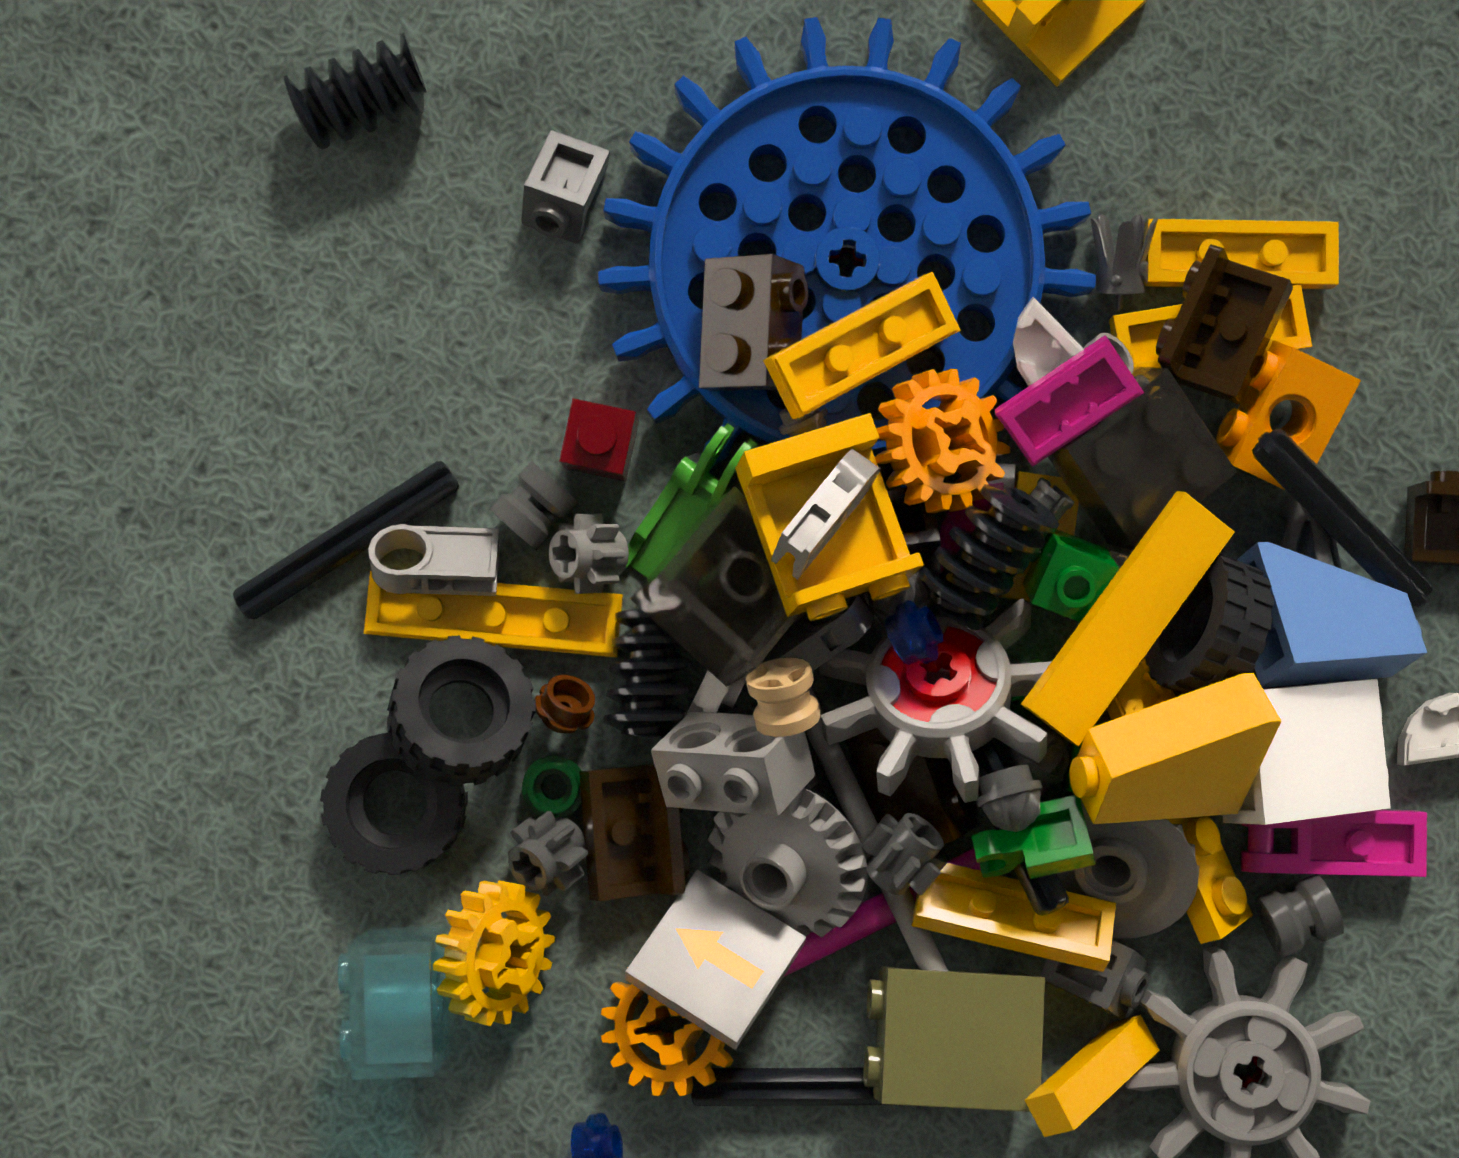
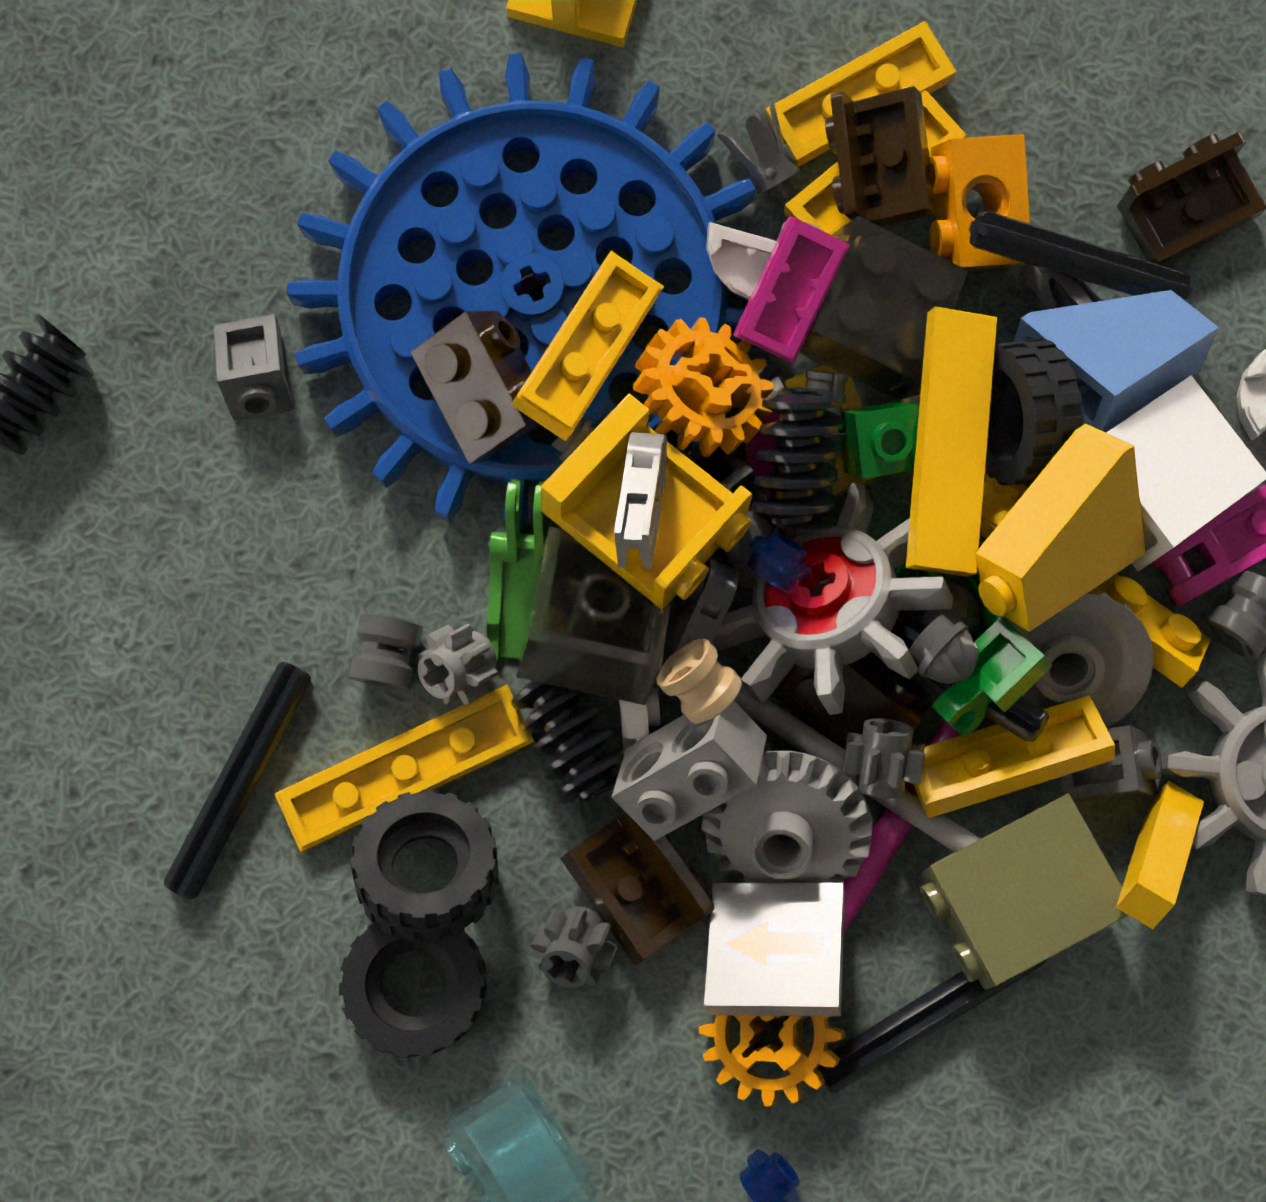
camera: 30 degrees left, 5 degrees down
(453, 561) = (341, 742): light grey piece -> none
(493, 952) = (578, 1061): yellow gear -> none
(533, 786) = (525, 881): dark green plate -> none
(566, 704) = (514, 807): reddish brown plate -> none
(599, 440) = (409, 562): dark red brick -> none

